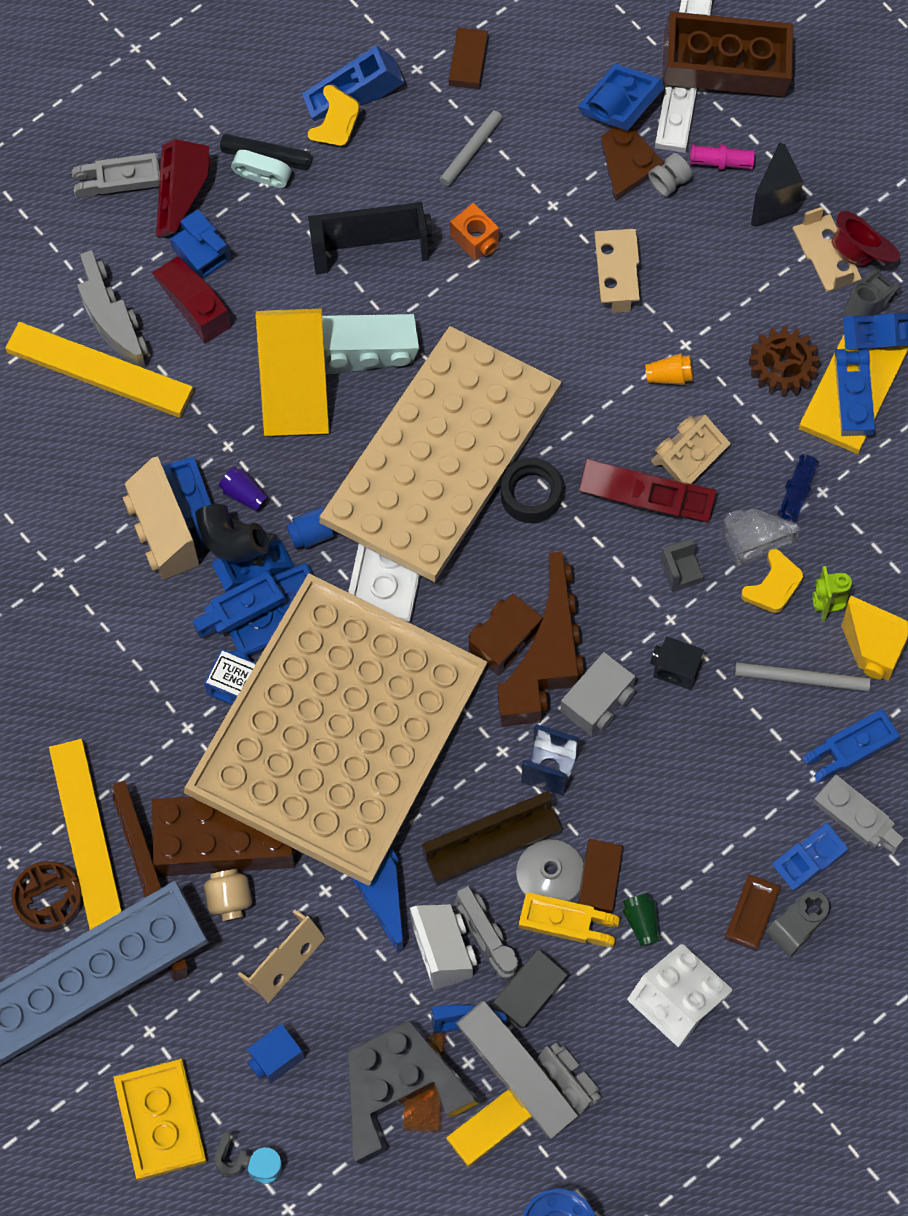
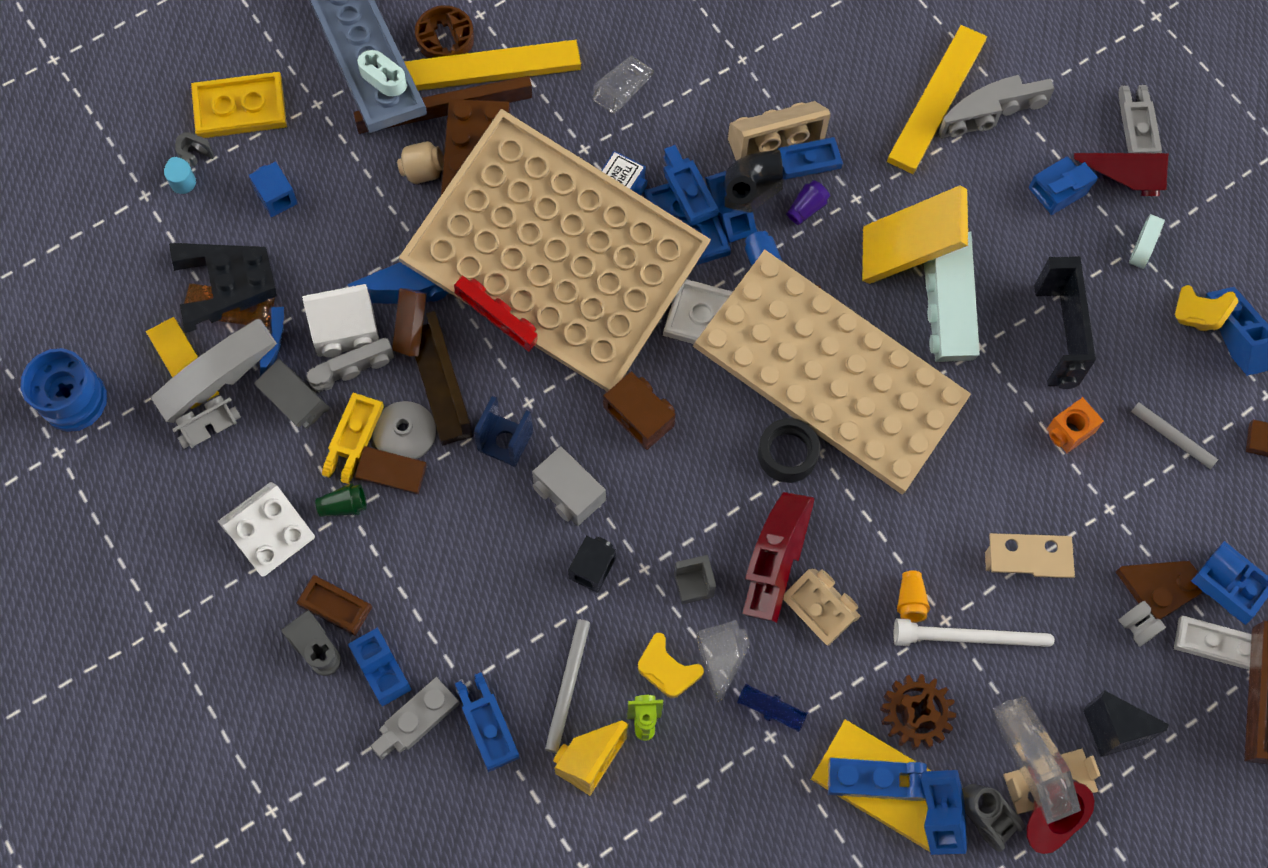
camera: 90 degrees right, 0 degrees up
(118, 706) = (613, 98): none -> clear slope
(140, 939) = (386, 69): none -> light aqua beam
(193, 299) = (1003, 175): dark red slope -> none
(285, 959) = (357, 204): tan piece -> none
(290, 156) = (1167, 249): black axle -> none
(425, 771) = (496, 312): none -> red plate
(434, 872) = (409, 322): none -> reddish brown tile
(551, 657) = (618, 451): reddish brown arch -> none
(706, 375) = (907, 632): none -> white piece
(722, 157) = (1165, 681): dark pink pin -> none
(821, 252) = (1037, 759): none -> clear slope

